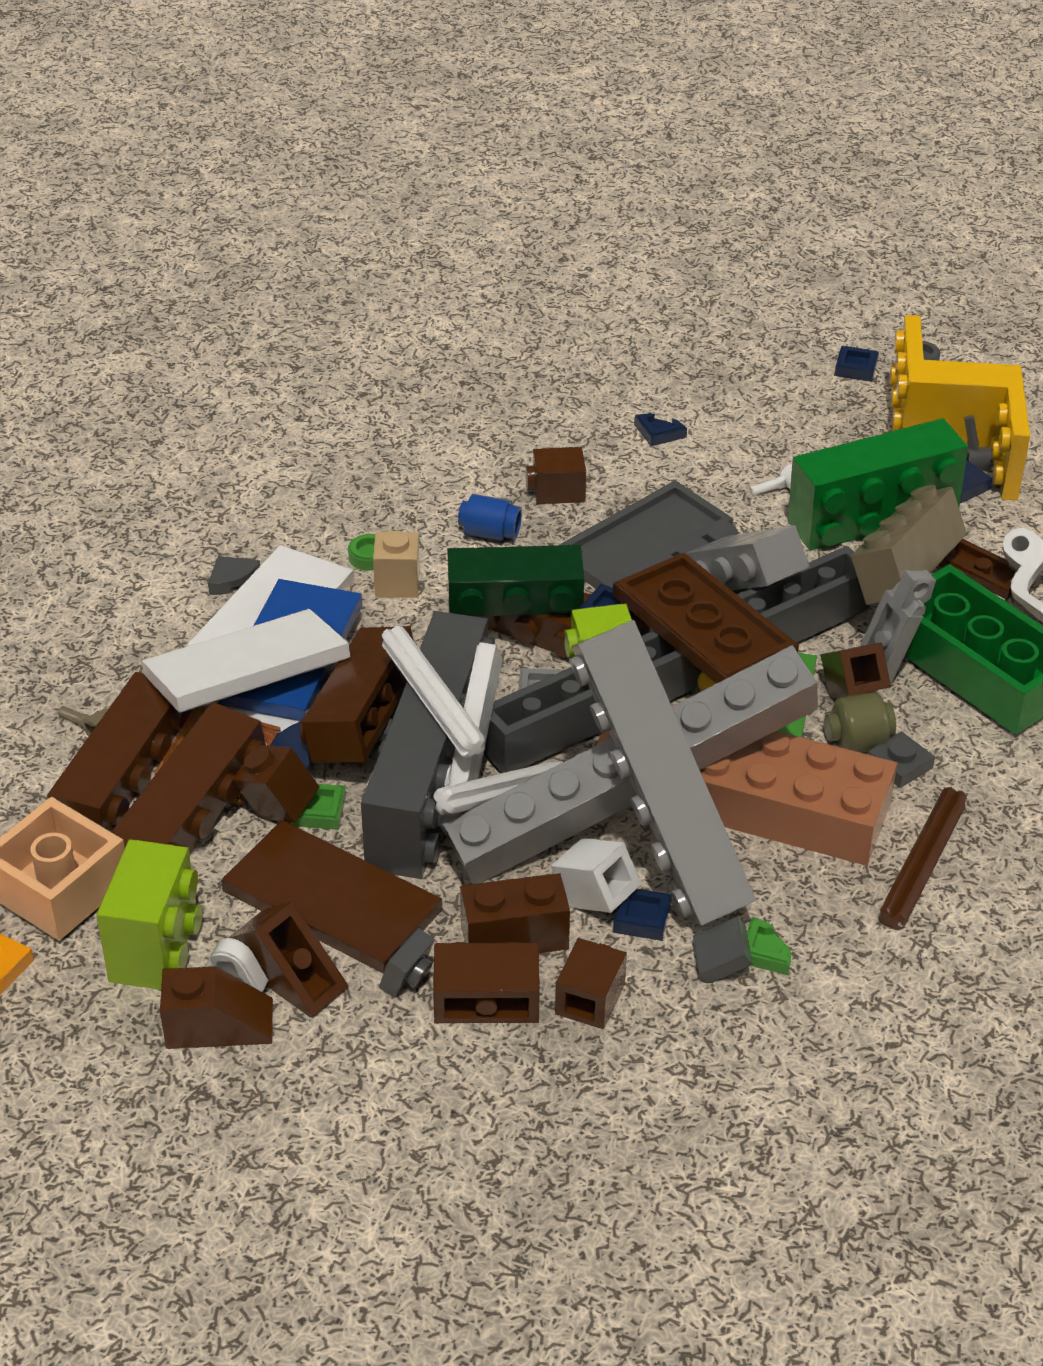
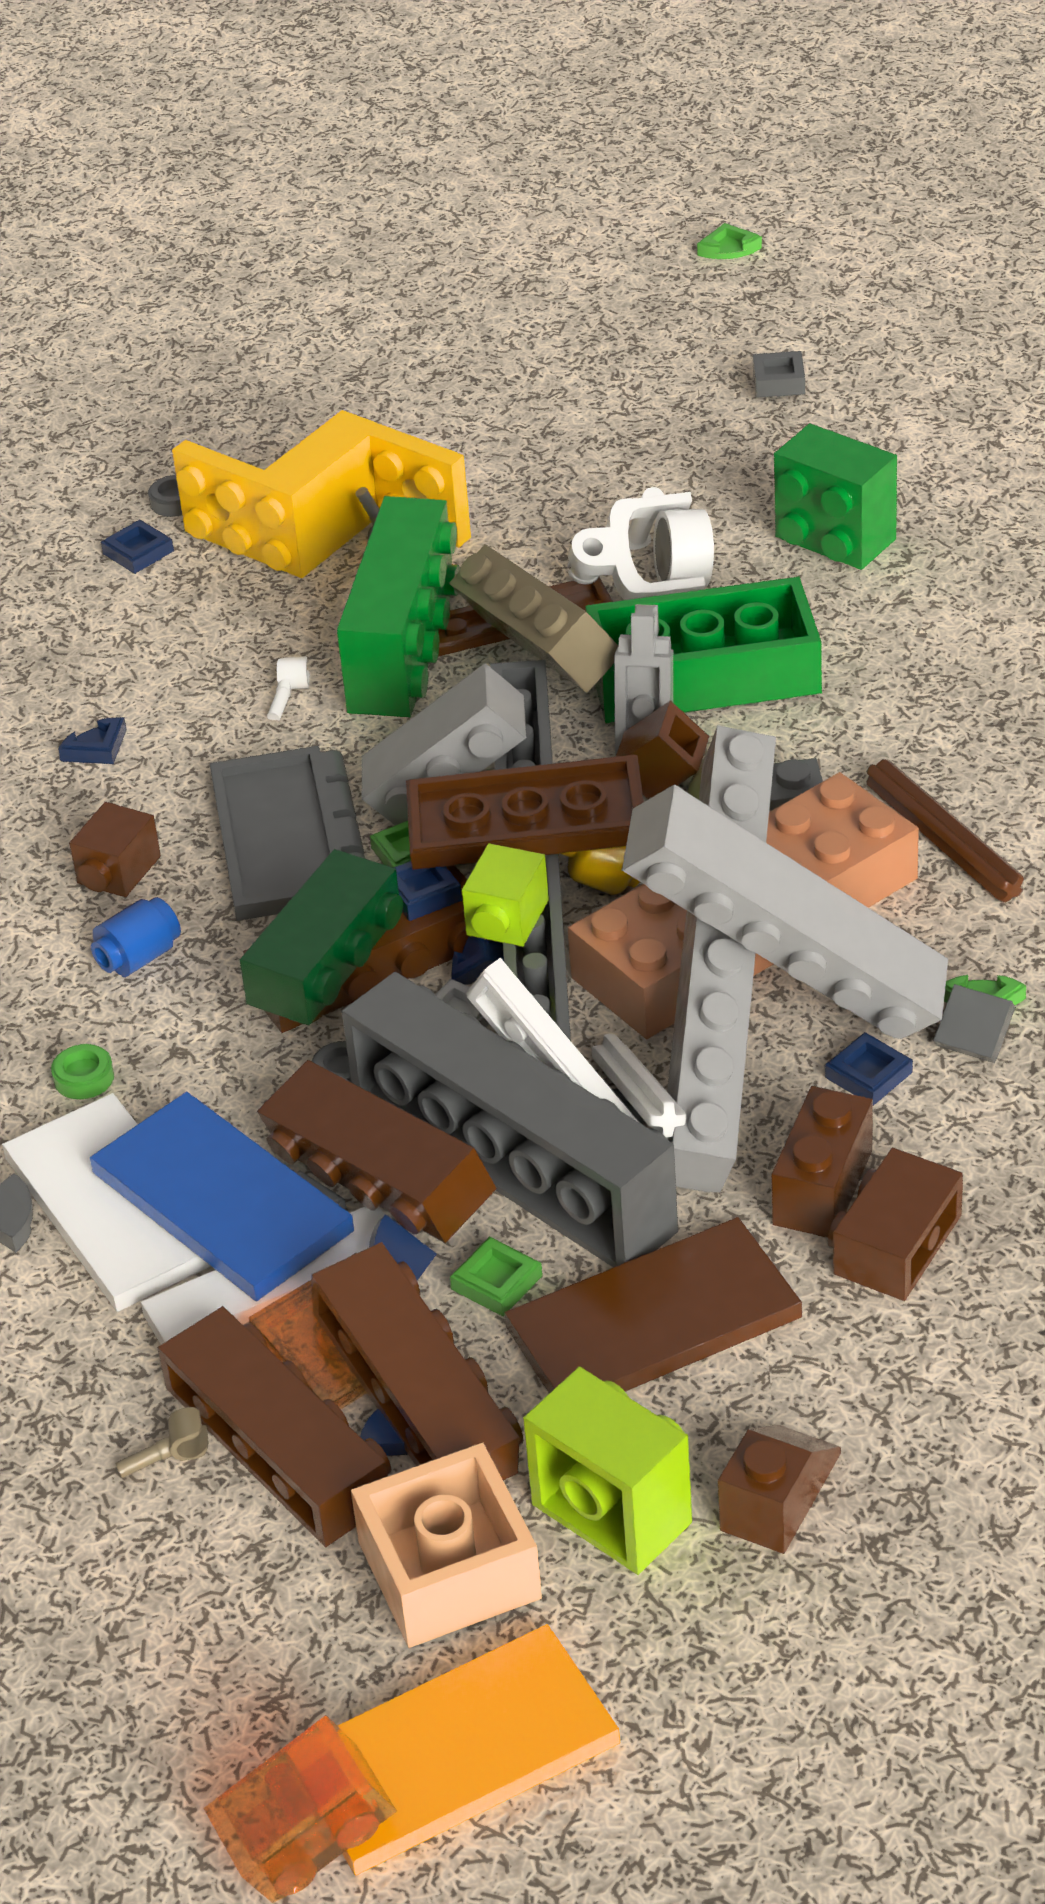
camera: 55 degrees left, 0 degrees up
(238, 961) = (722, 1431): white tile -> none
(245, 660) = (245, 1227): white tile -> none
(275, 783) = (465, 1282): reddish brown brick -> none
(292, 958) = (737, 1379): reddish brown slope -> none
(396, 564) = (152, 1045): tan brick -> none
(408, 964) = (824, 1278): dark grey plate -> none
(433, 692) = (495, 1054): white axle -> none
(590, 983) = (958, 1135): reddish brown brick -> none
(597, 874) = (804, 1059): white brick -> none

